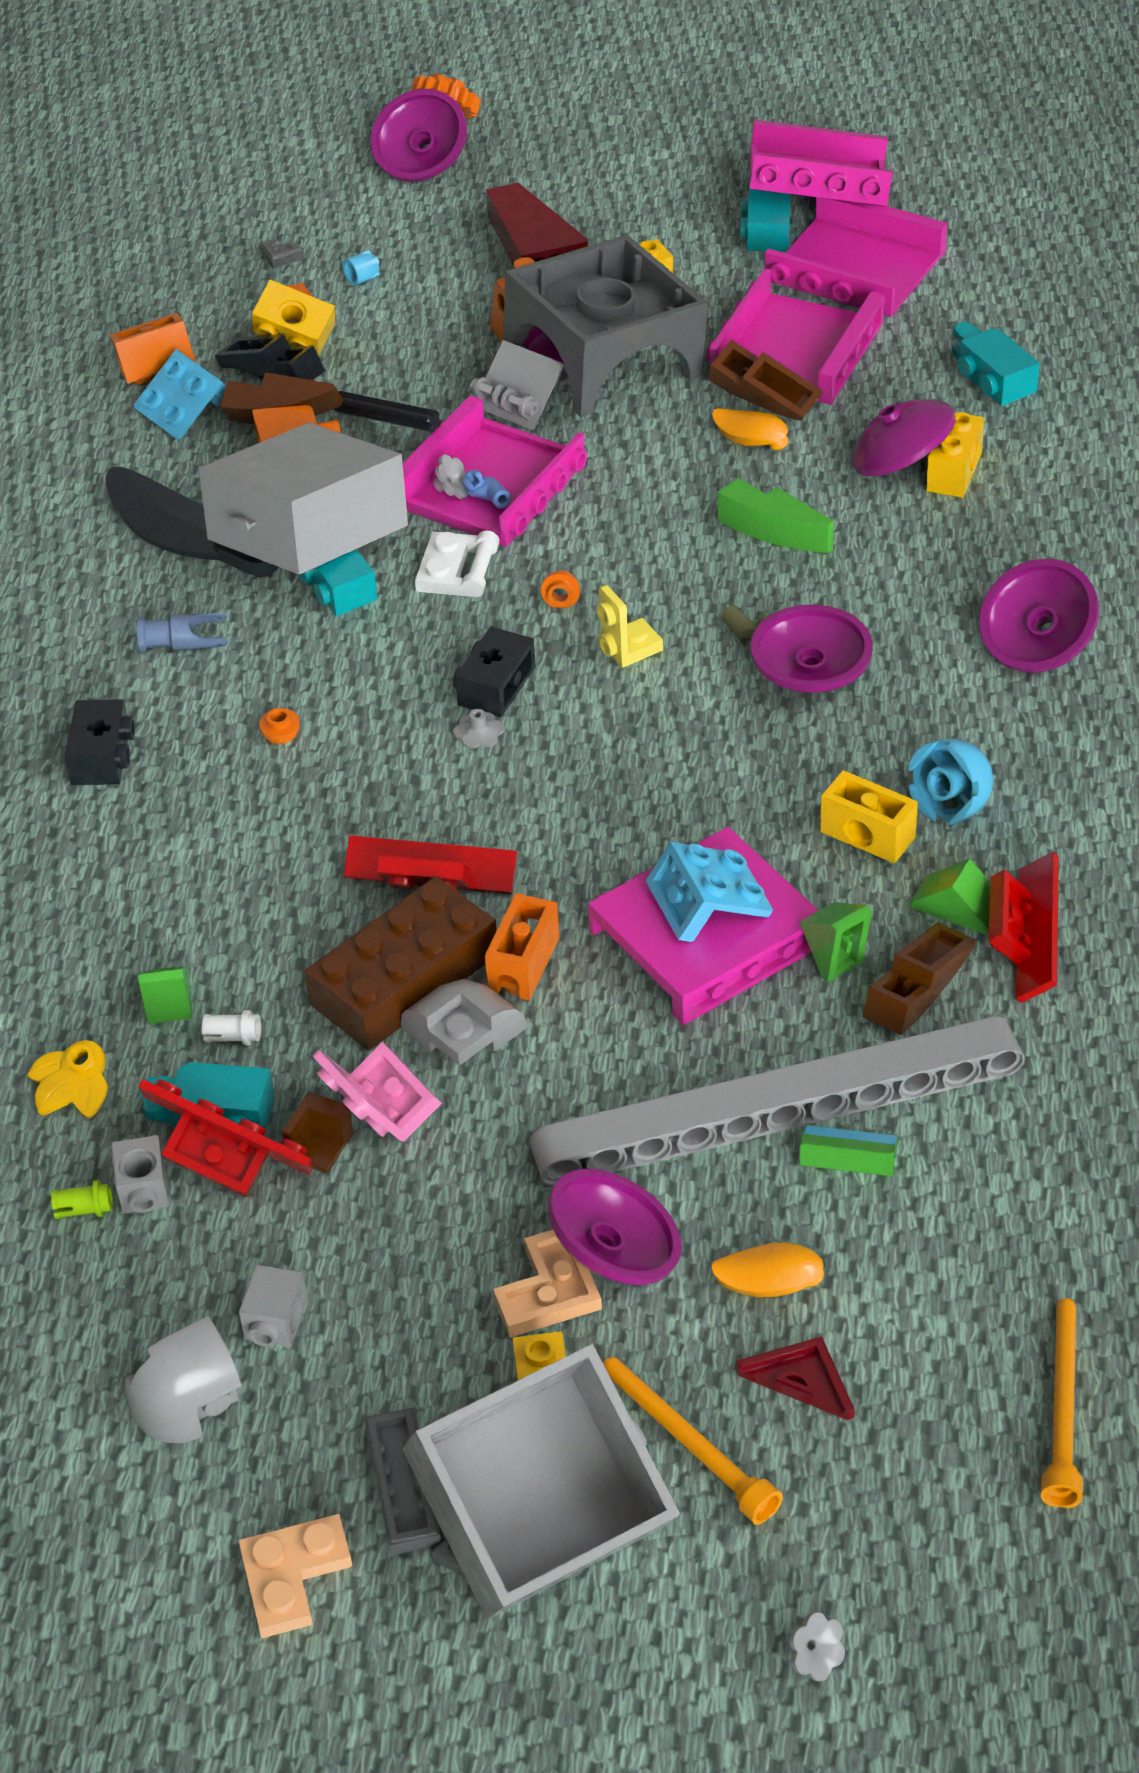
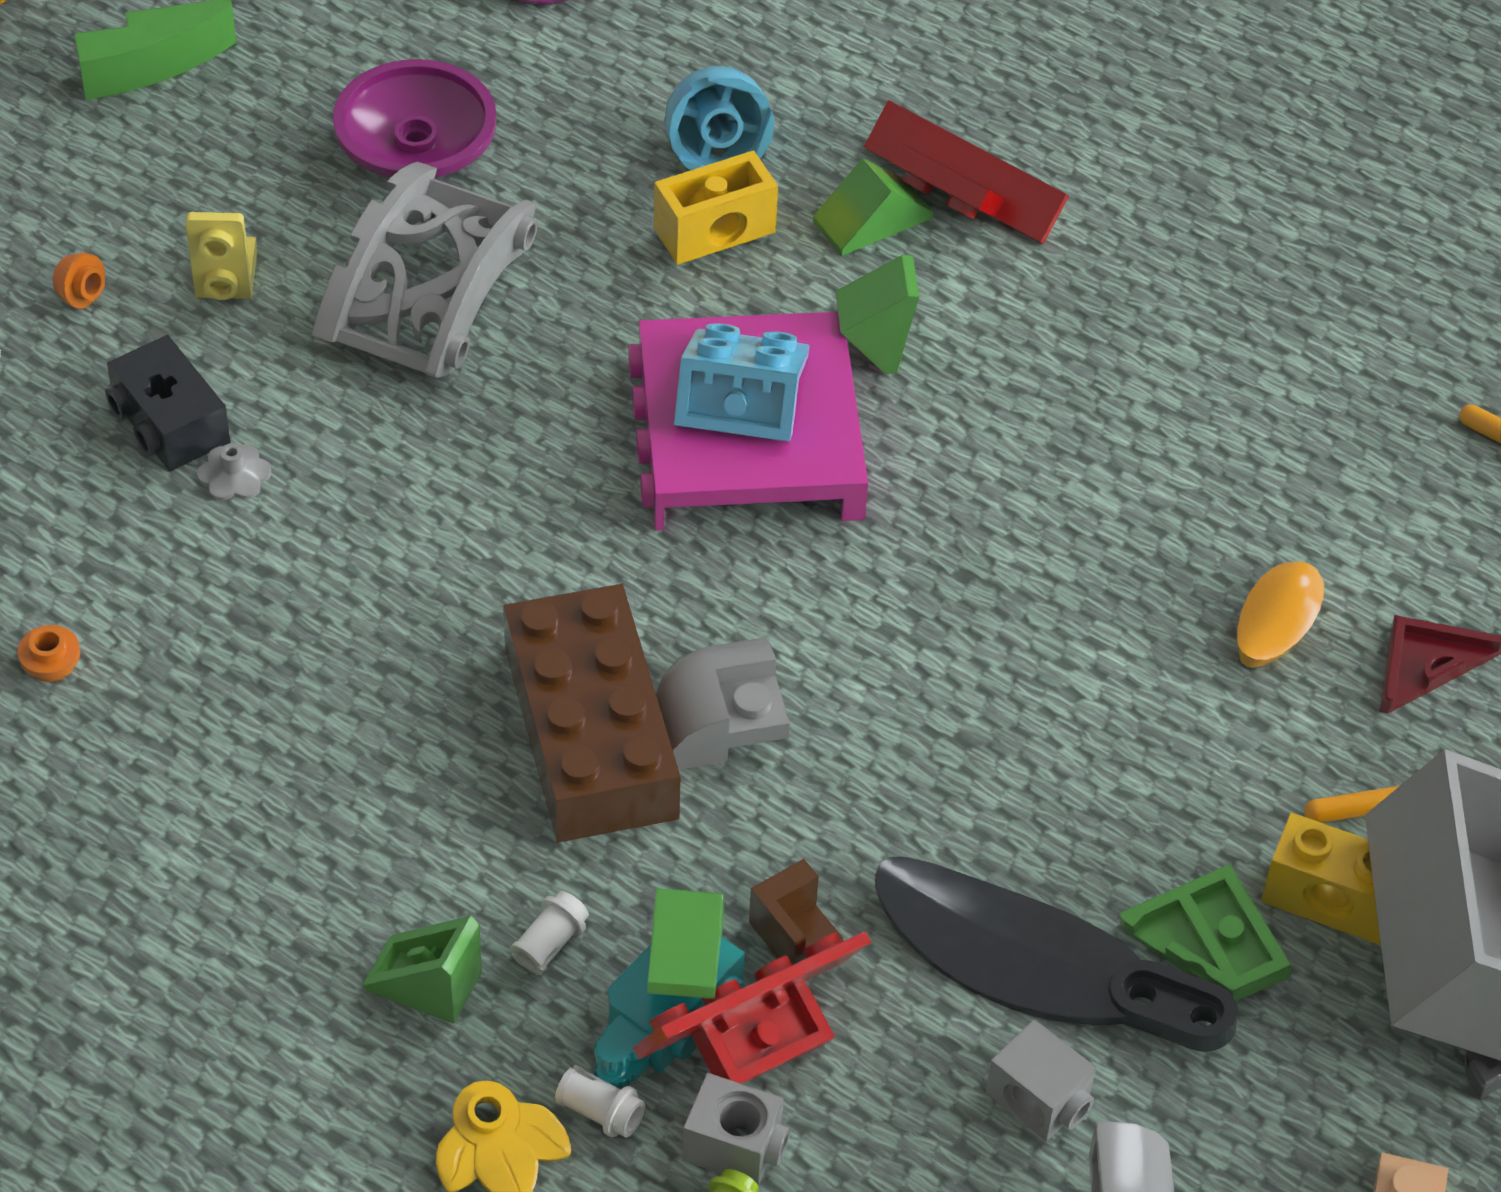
camera: 65 degrees left, 5 degrees up
(125, 1115) = (594, 1098): none -> white pin
(221, 1067) = (685, 943): none -> bright green slope
(381, 1092) = (785, 819): bright pink bracket -> none
(381, 1267) = (1045, 957): none -> black plant
(404, 1507) = (1369, 1071): dark grey plate -> none
(415, 863) = (440, 618): red bracket -> none
(458, 1349) = (1211, 933): none -> bright green wing
(516, 955) = (668, 586): orange brick -> none
(556, 1293) = (1183, 794): light nougat plate -> none
(614, 1227) = (1156, 707): magenta dish -> none
(662, 740) = (470, 221): none -> light grey fence
(740, 623) = (304, 162): olive arm -> none
(778, 1099) = (1049, 505): light grey beam -> none
(848, 1150) = (1153, 469): bright green slope -> none
(917, 977) = (966, 296): reddish brown slope -> none

